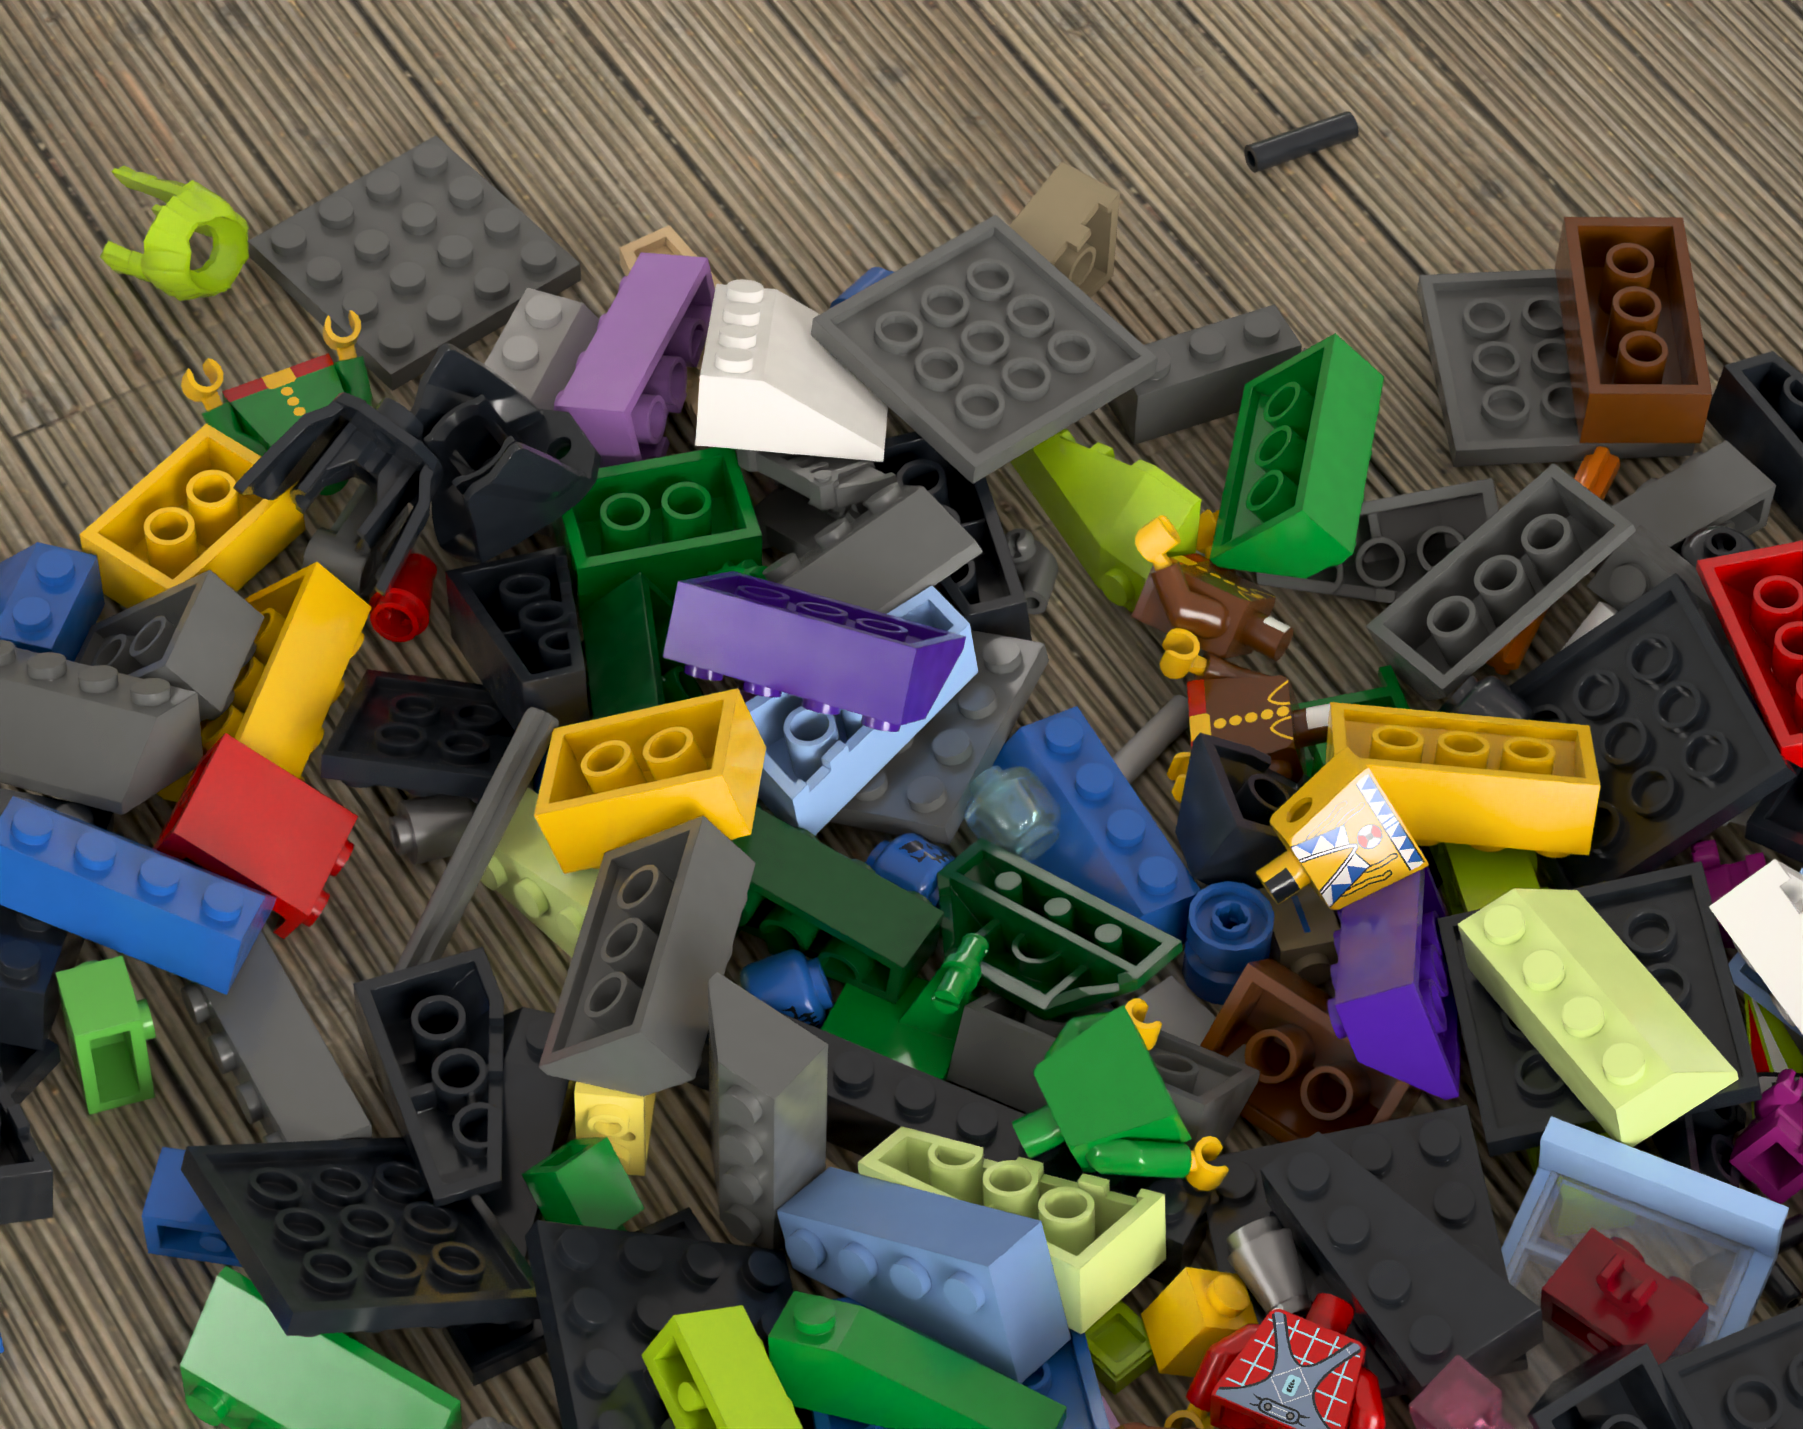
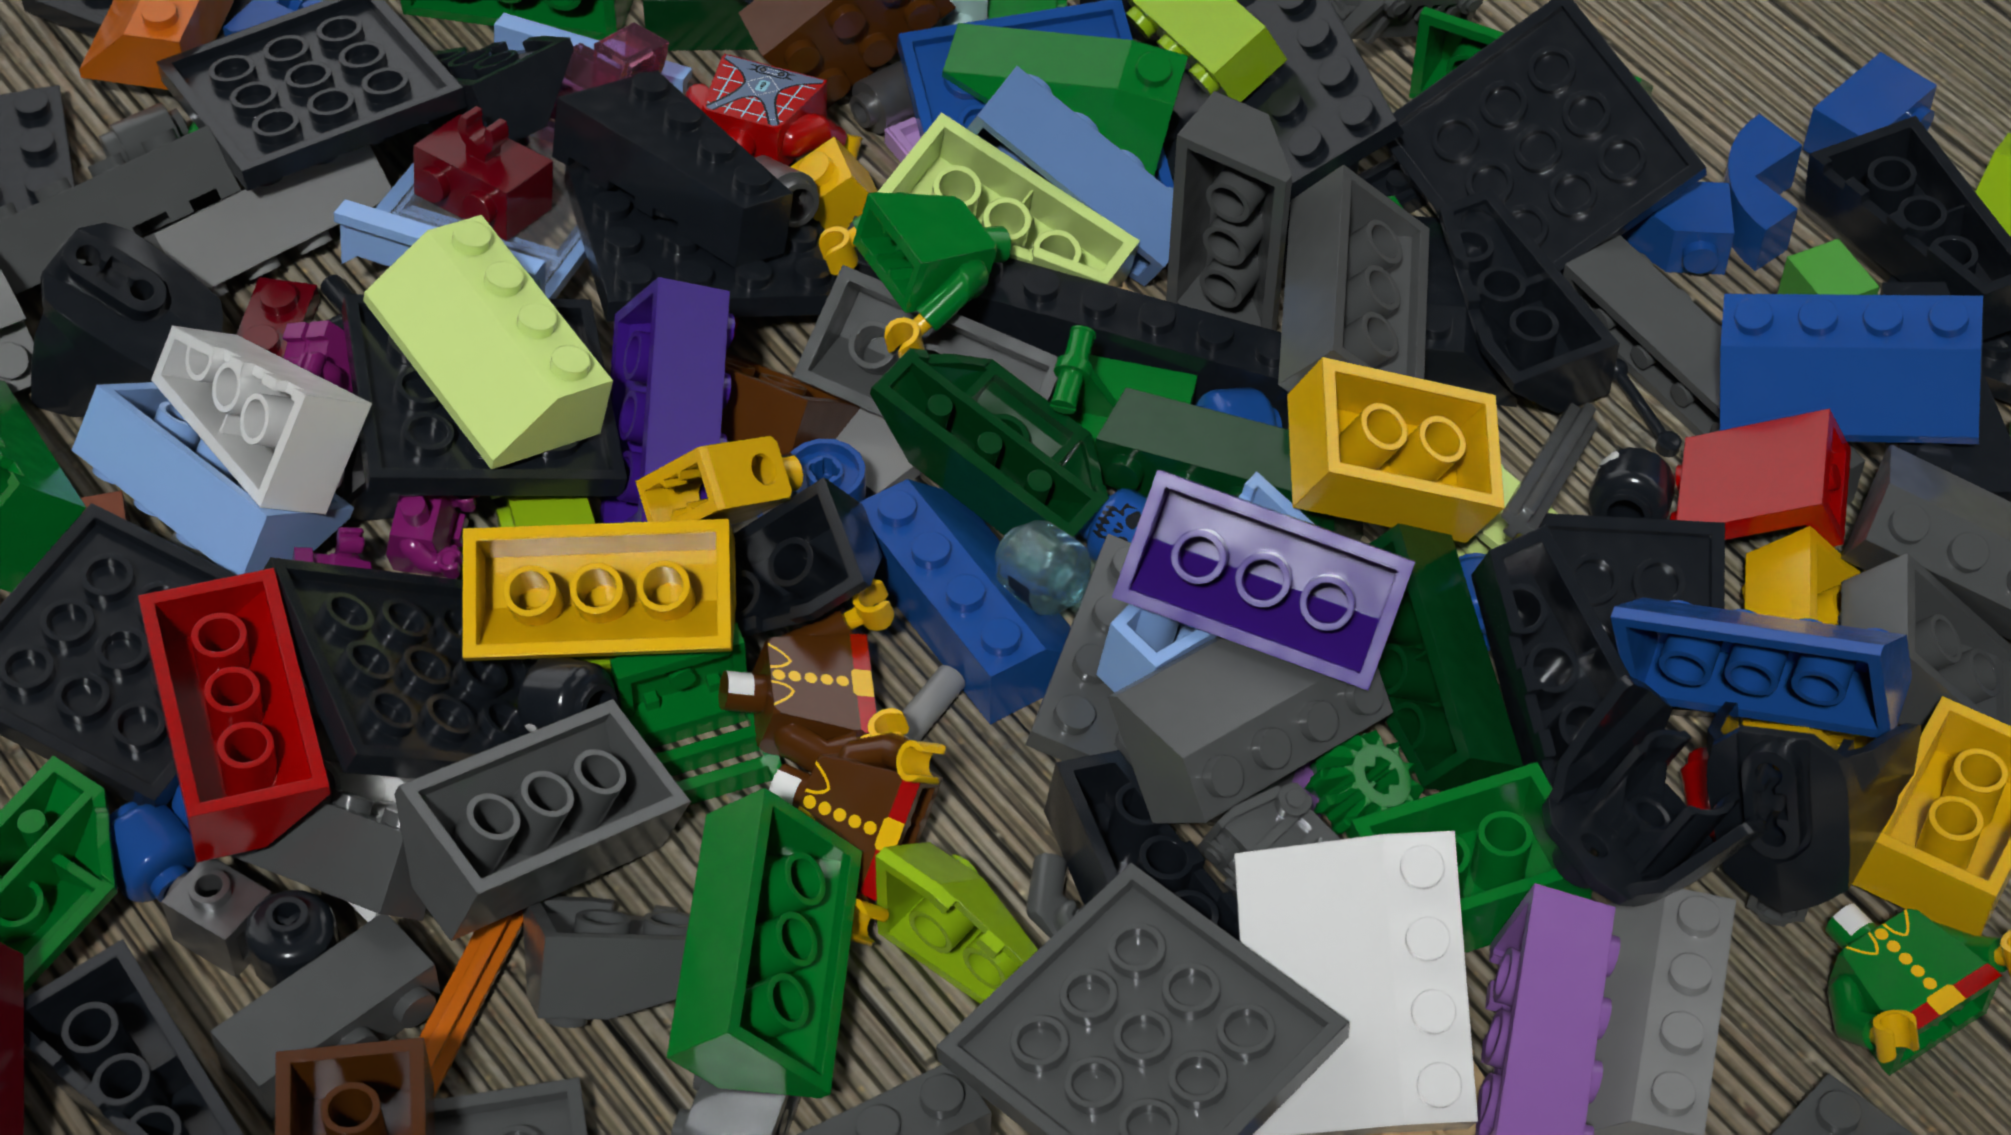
camera: 175 degrees right, 0 degrees up
(97, 1272) = (1758, 171): none -> blue brick
(314, 976) = (1667, 442): none -> black hinge
(349, 578) = (1767, 664): none -> blue slope
(380, 886) = (1632, 485): none -> black head

